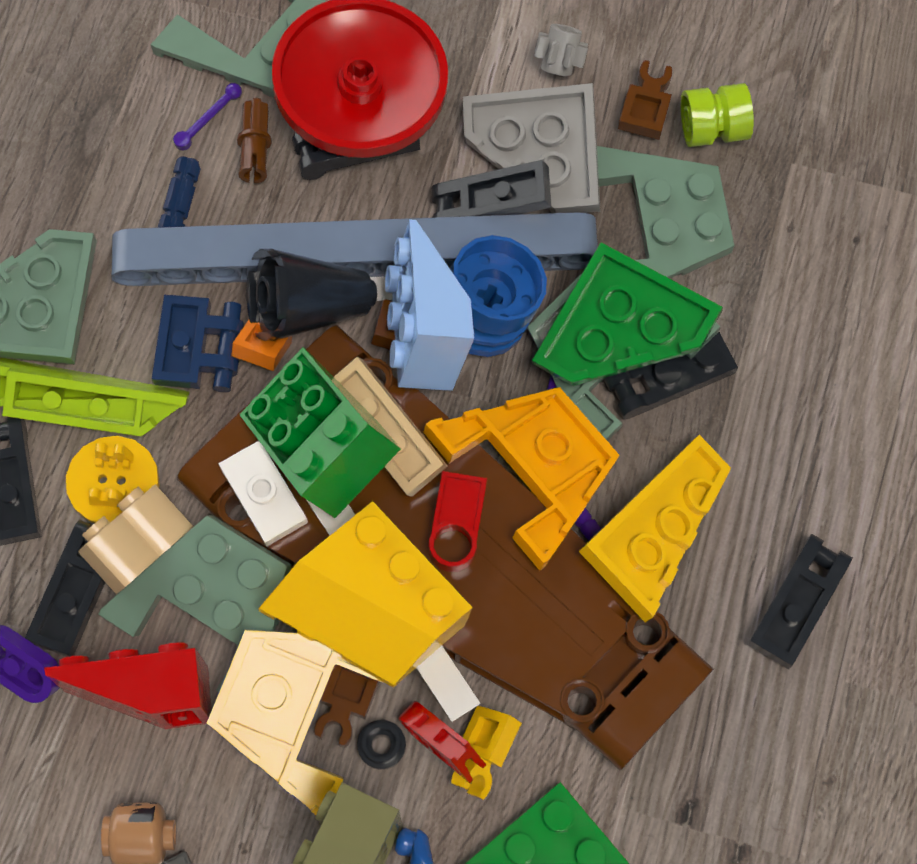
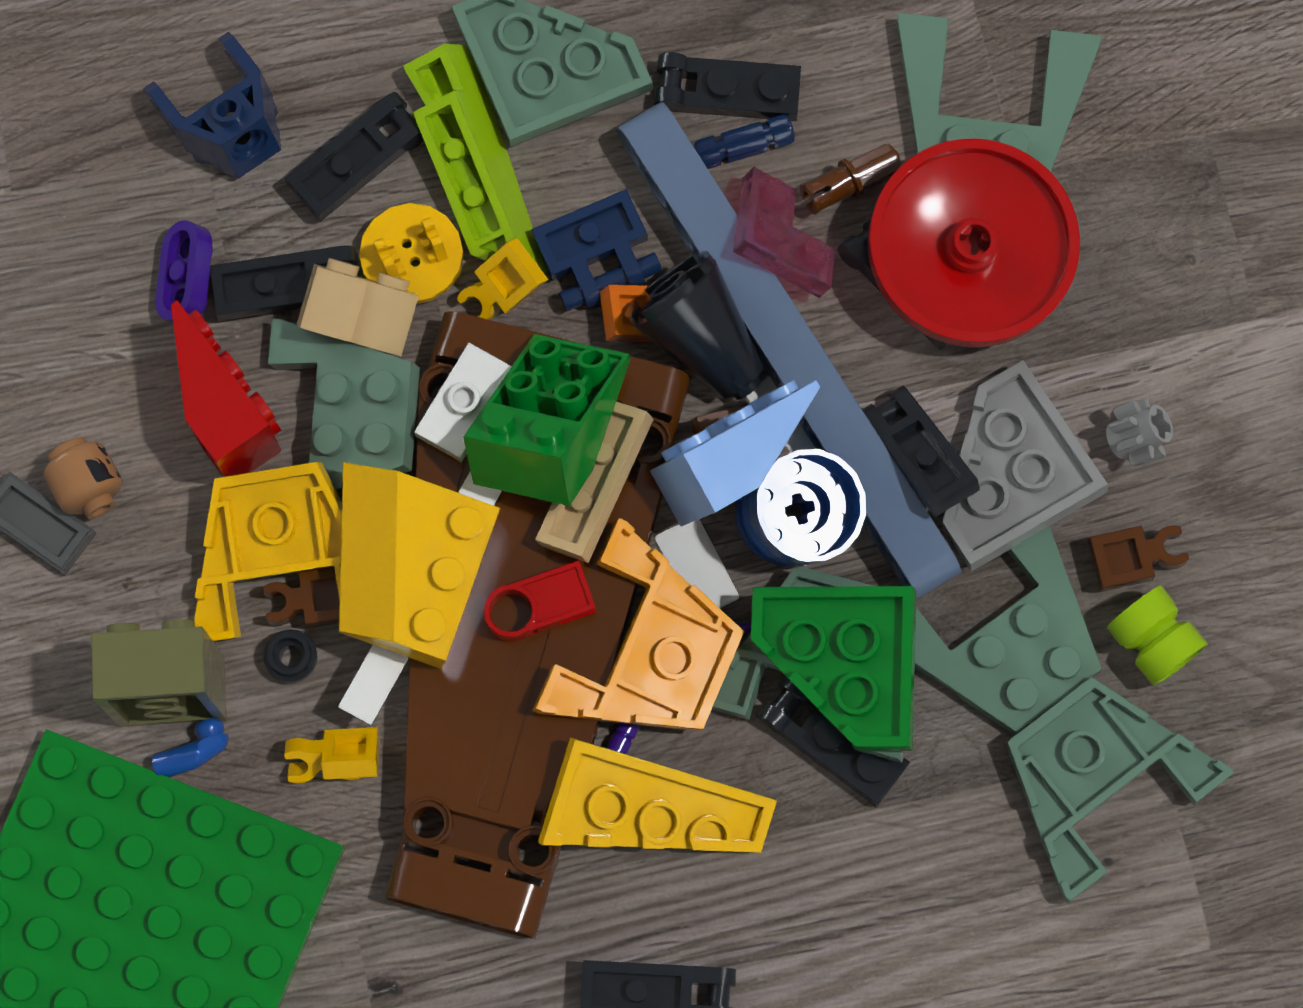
camera: 65 degrees right, 5 degrees up
(130, 186) = (728, 87): none -> black plate
(181, 415) = (505, 280): none -> yellow plate
(183, 139) = (814, 107): dark purple hinge -> none
(271, 211) = (769, 239): none -> clear pink plate
(440, 739) = (318, 706): red piece -> none
(474, 395) = (697, 561): none -> white sticker
(777, 213) = (1084, 756): none -> sand green wing

